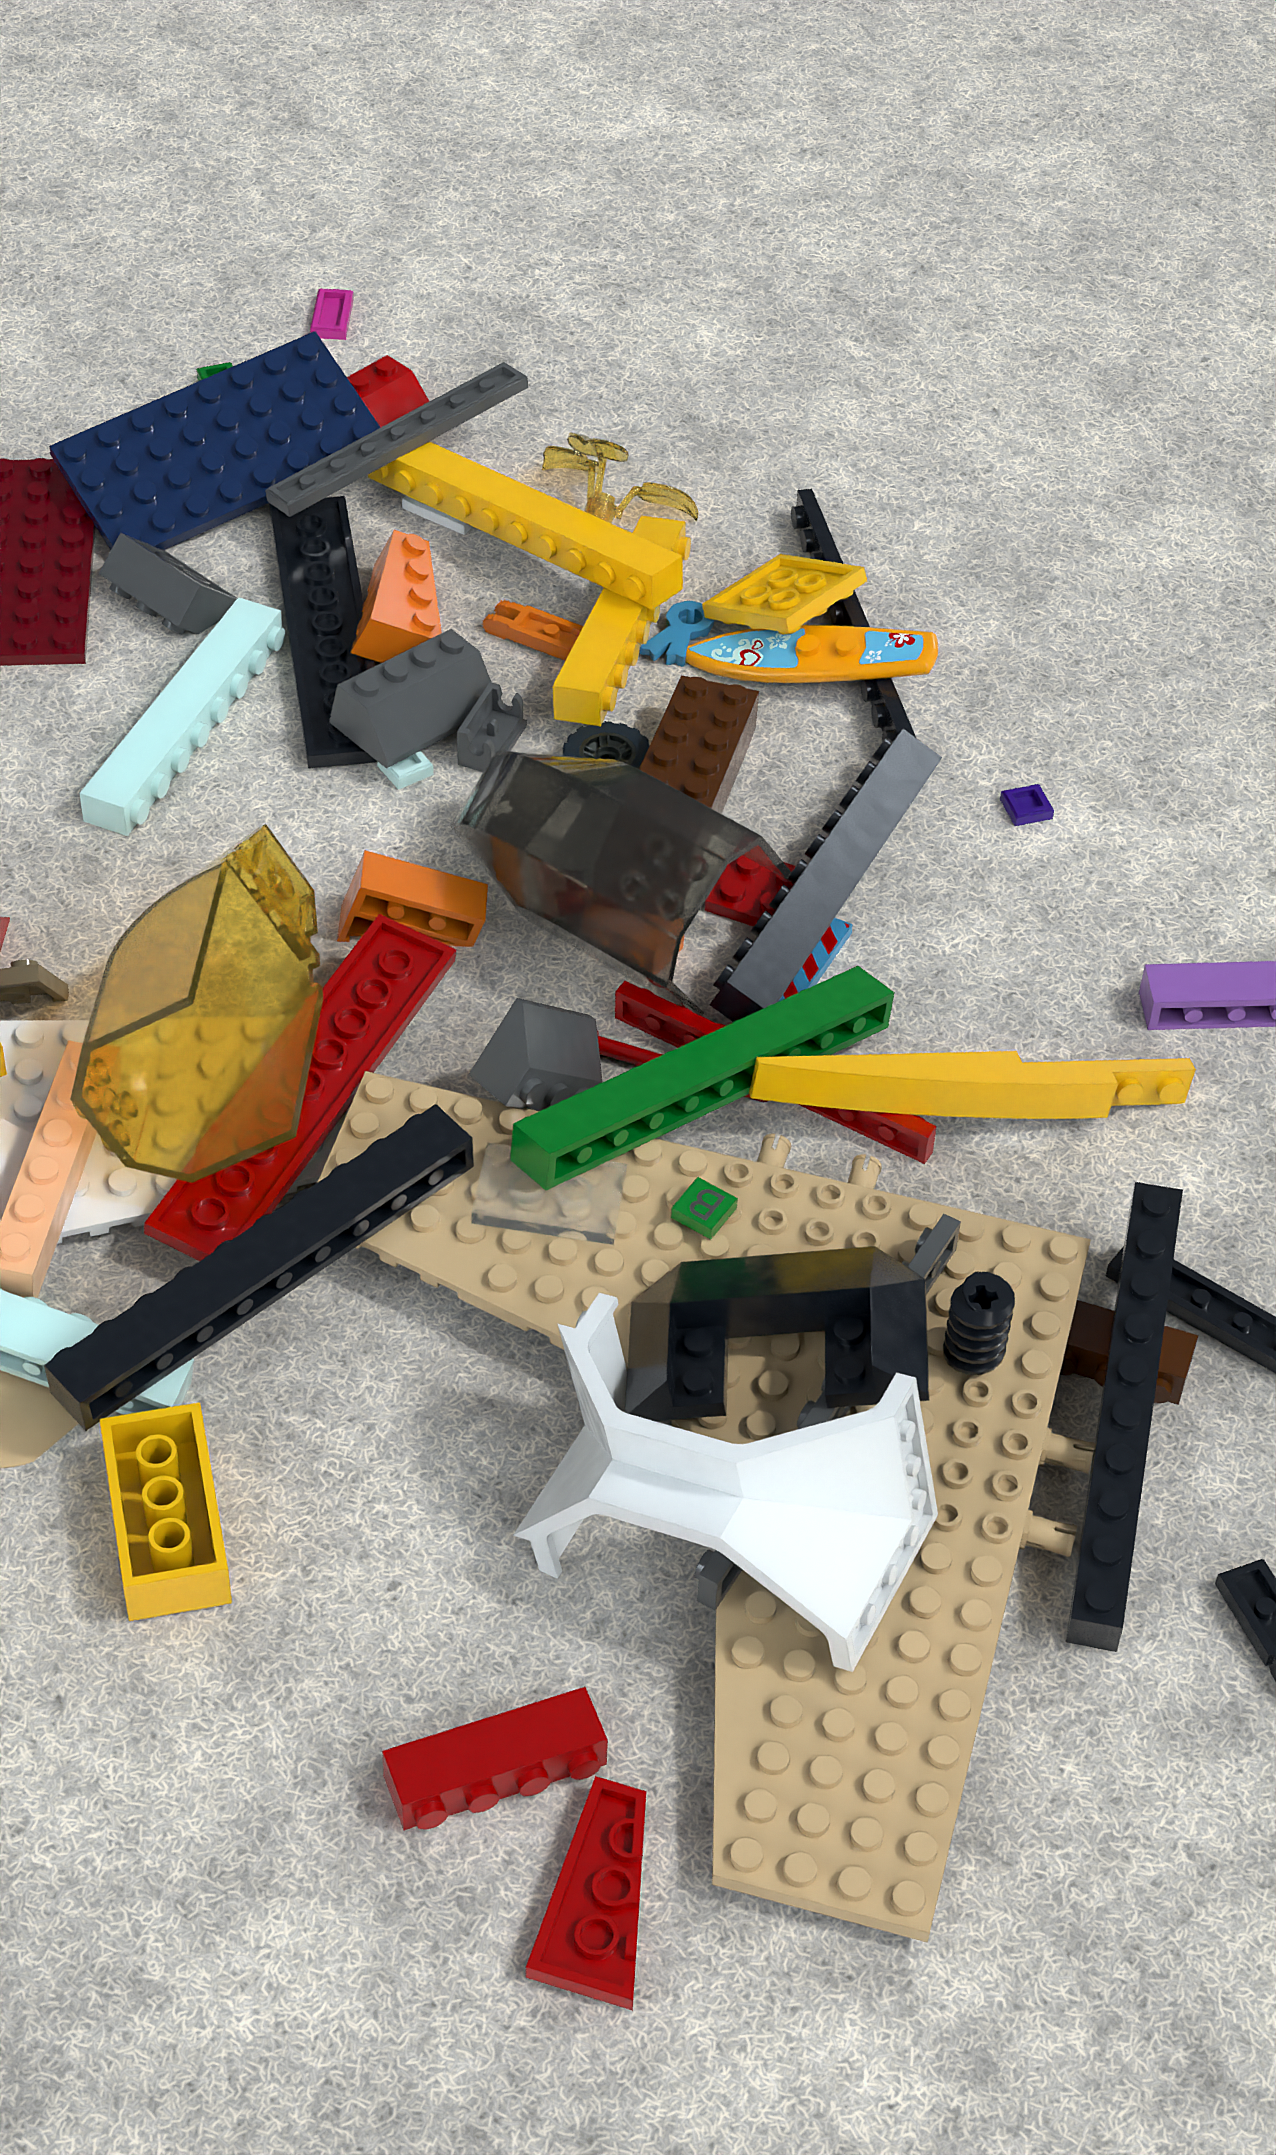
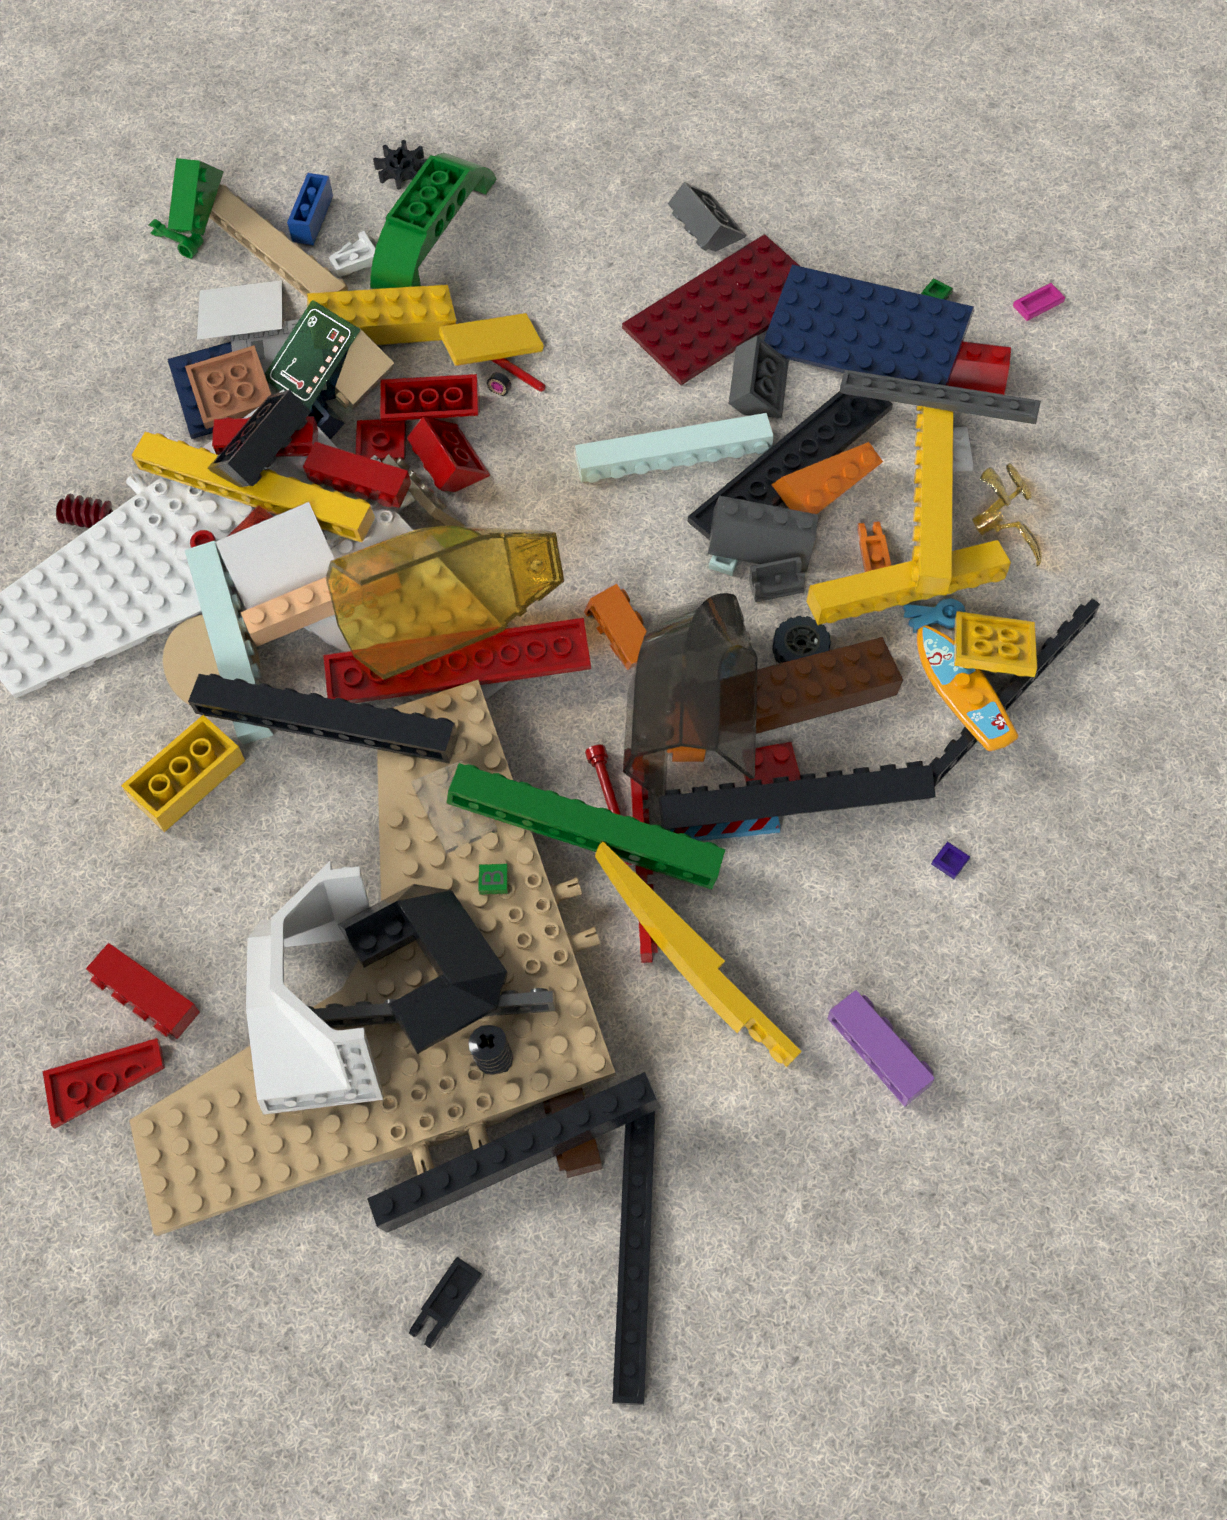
camera: 60 degrees right, 15 degrees up
(539, 1056) = (540, 749): dark grey slope -> none

